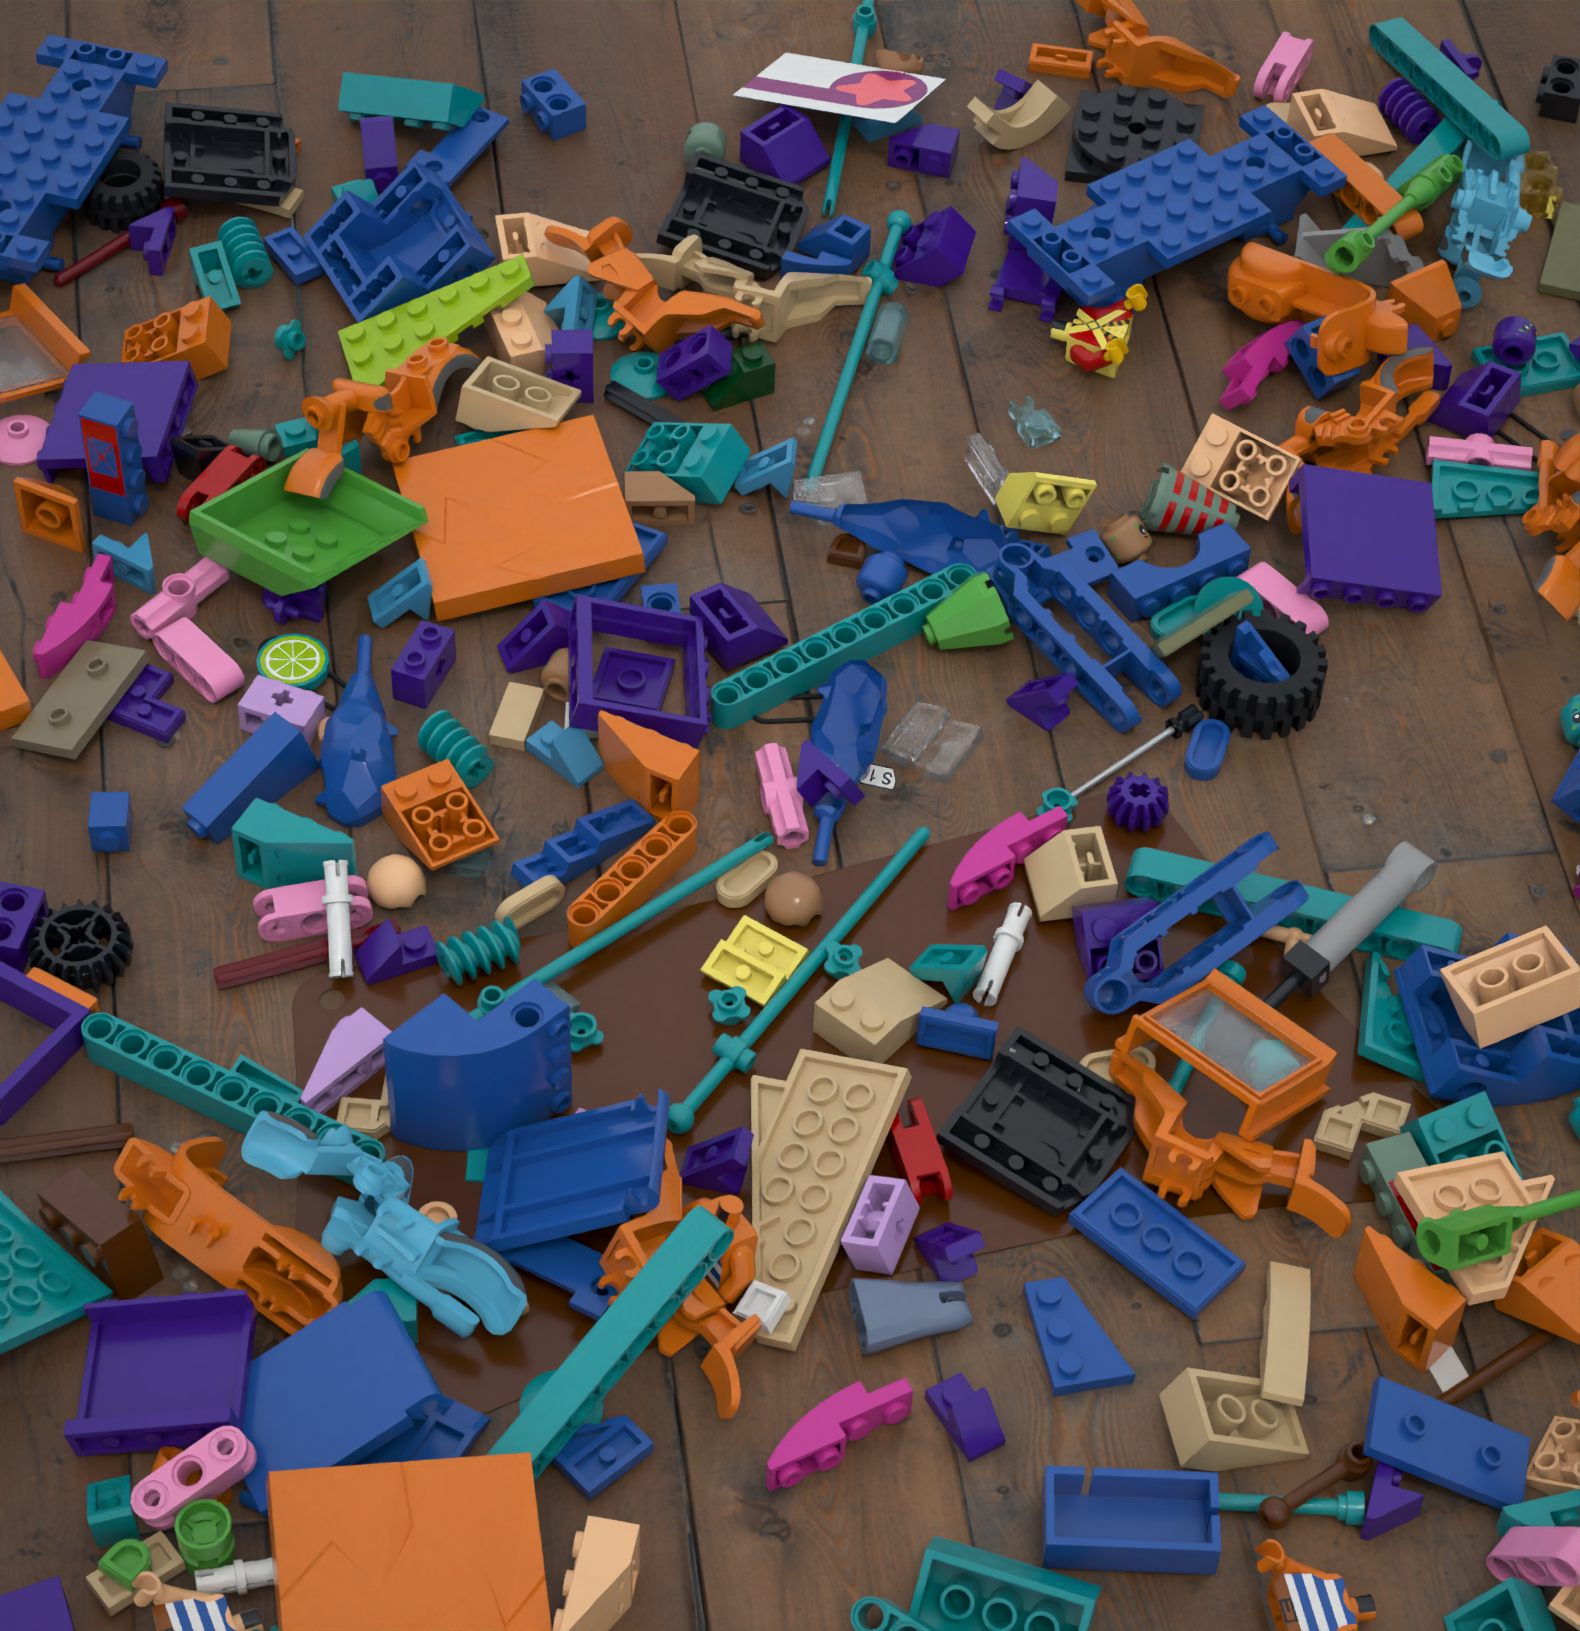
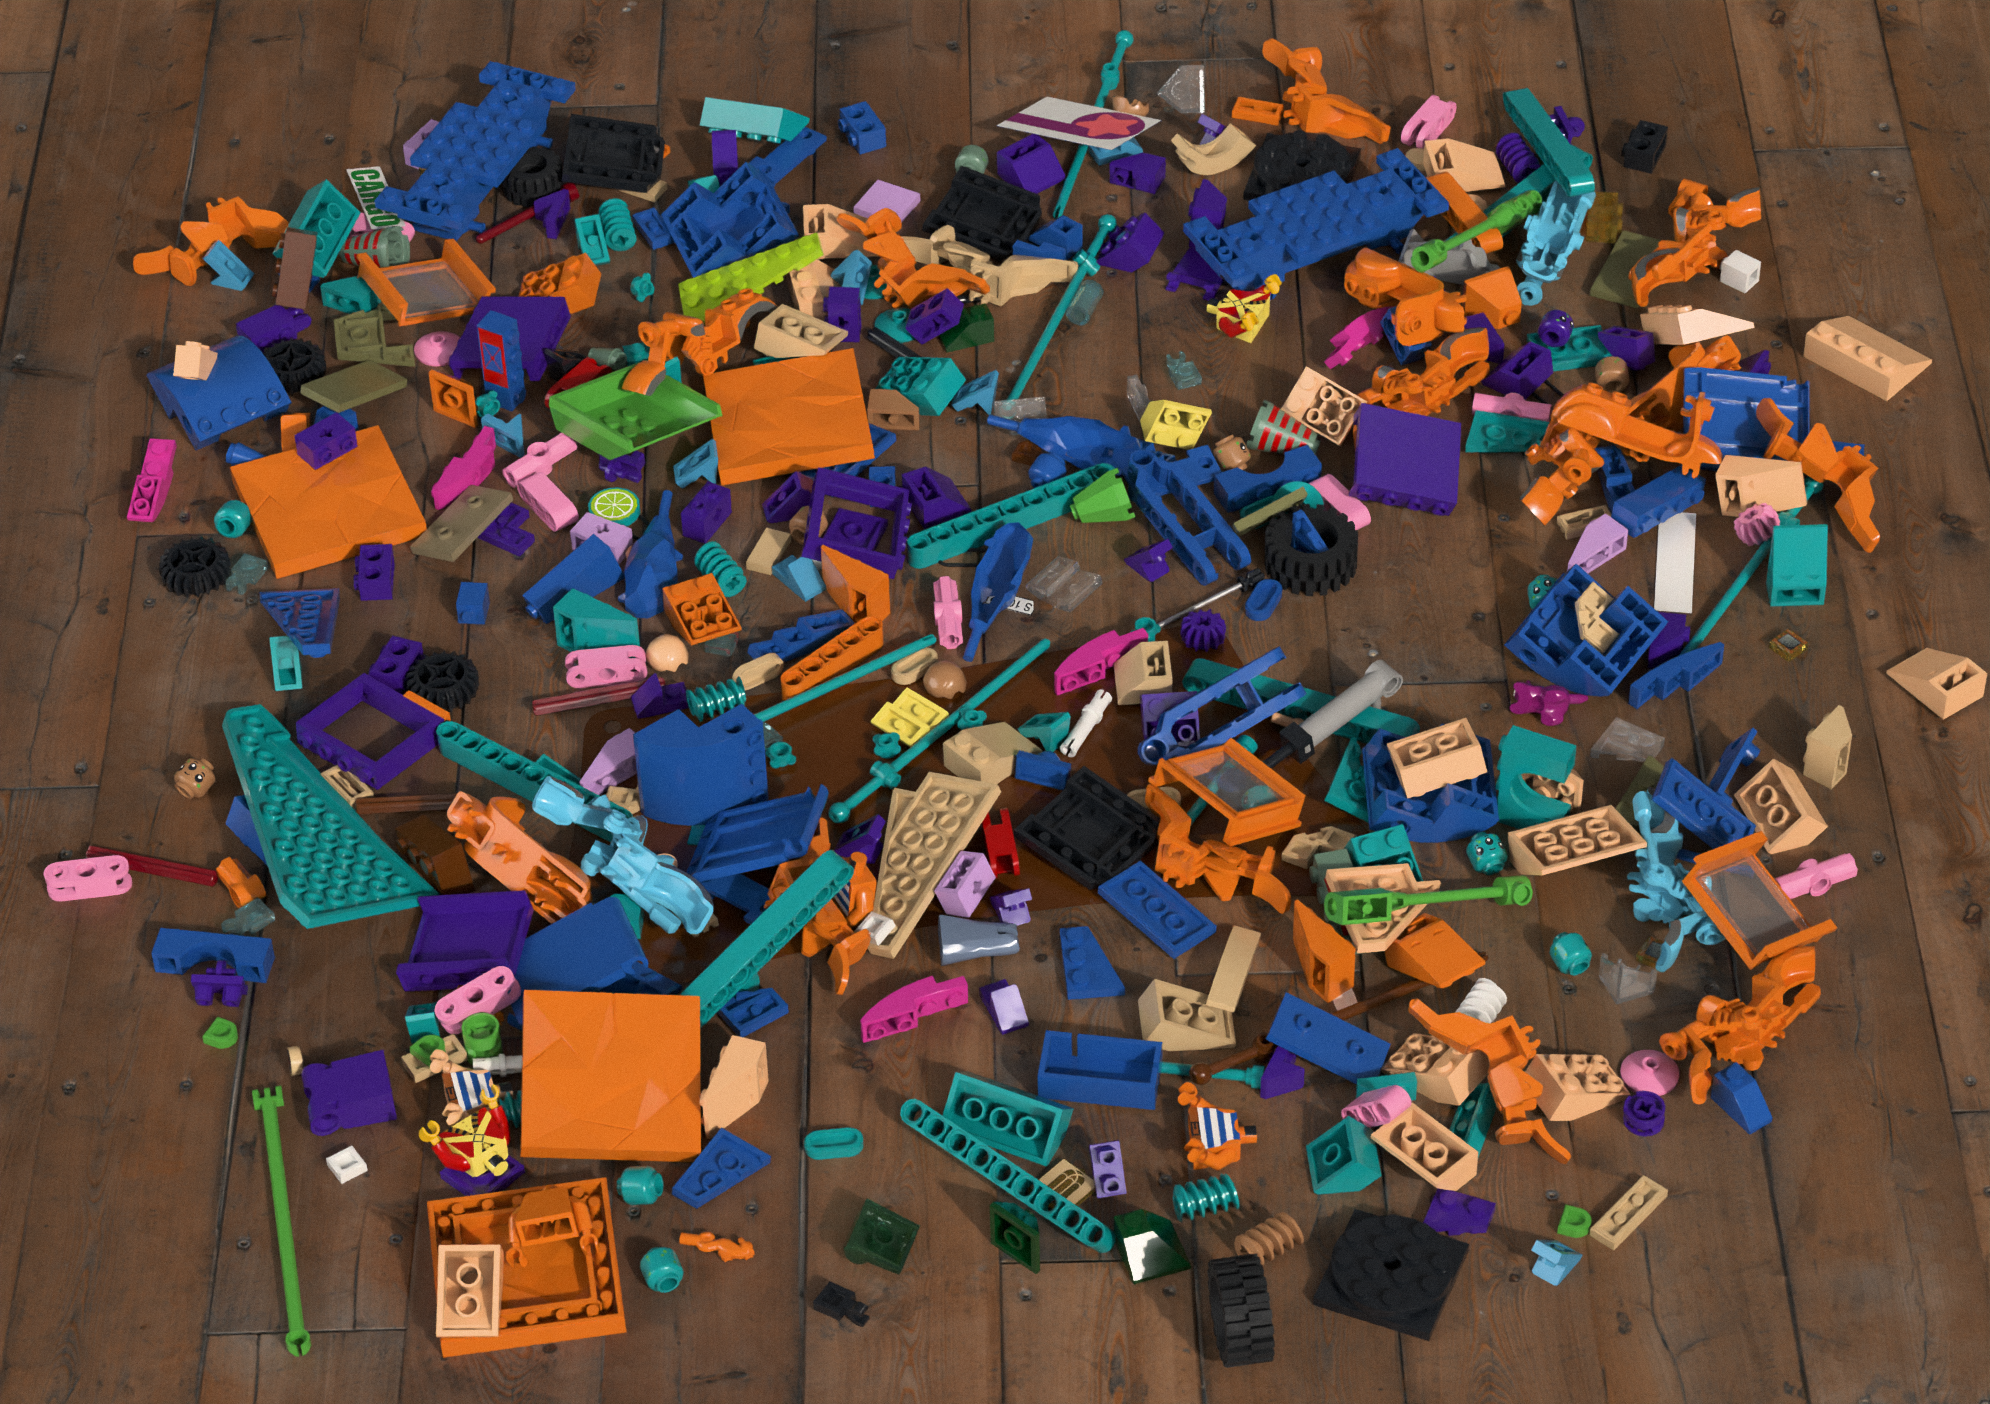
camera: 10 degrees right, 5 degrees down
(98, 519) = (487, 404): none -> teal plate
(338, 918) = (621, 660): white pin -> none
(598, 200) = (889, 196): none -> lavender tile
(819, 775) = (975, 599): dark purple slope -> none
(965, 36) = (1185, 89): none -> clear slope

